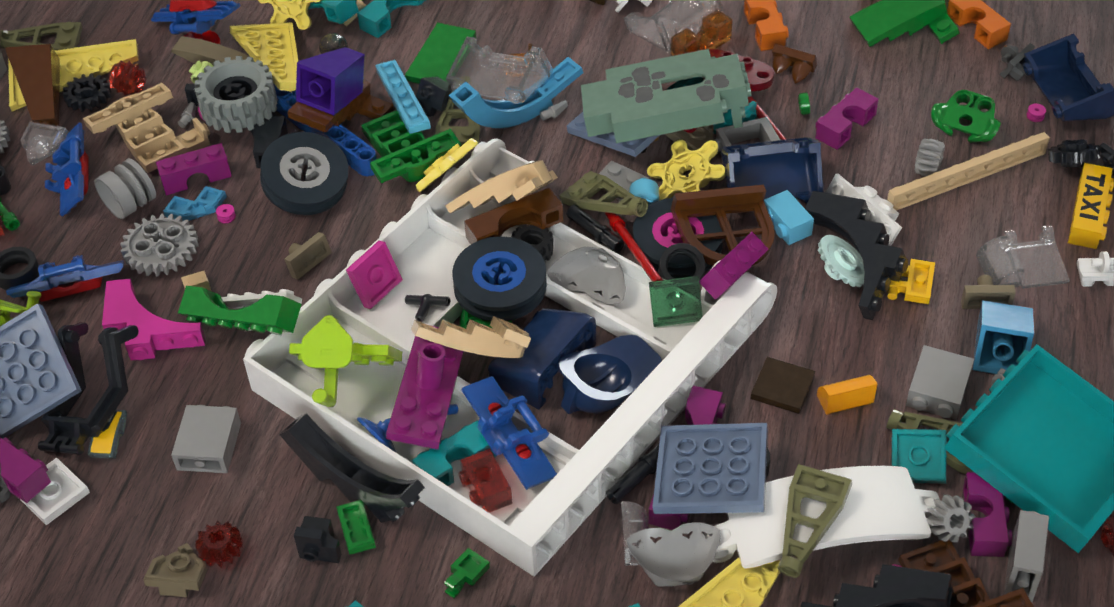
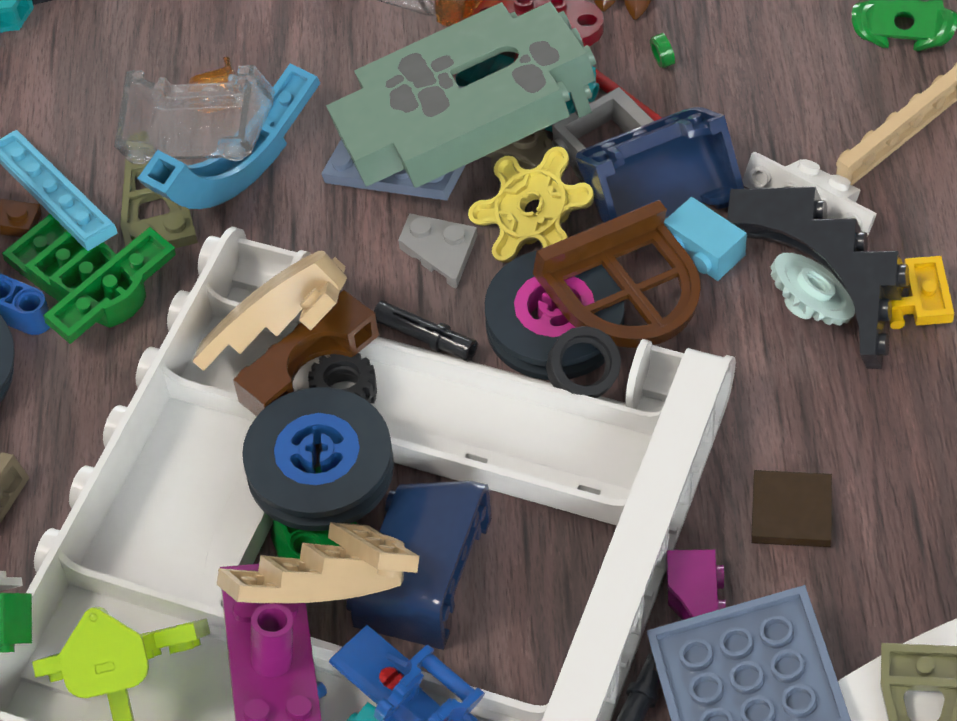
camera: 15 degrees left, 5 degrees up
(374, 274) = (118, 503): dark pink plate -> none
(425, 302) = (213, 523): black piece -> none
(433, 94) = (100, 174): black brick -> none
(438, 52) = (84, 105): green tile -> none
(444, 163) = (166, 289): light yellow plate -> none
(554, 110) = (292, 152): light grey bar -> none
(590, 184) = (391, 262): olive plate -> none
(590, 274) = (450, 411): light grey piece -> none
(606, 374) = (534, 567): dark blue piece -> none
(618, 225) = (459, 317): red bar -> none
(645, 189) = (480, 257): medium azure head -> none
(675, 301) = (596, 422): clear green tile -> none
(733, 265) = (672, 336): magenta arch -> none
(836, 125) = (721, 77): magenta arch -> none
(847, 394) = (891, 497): light orange brick -> none
(929, 157) = (875, 92): light grey gear -> none

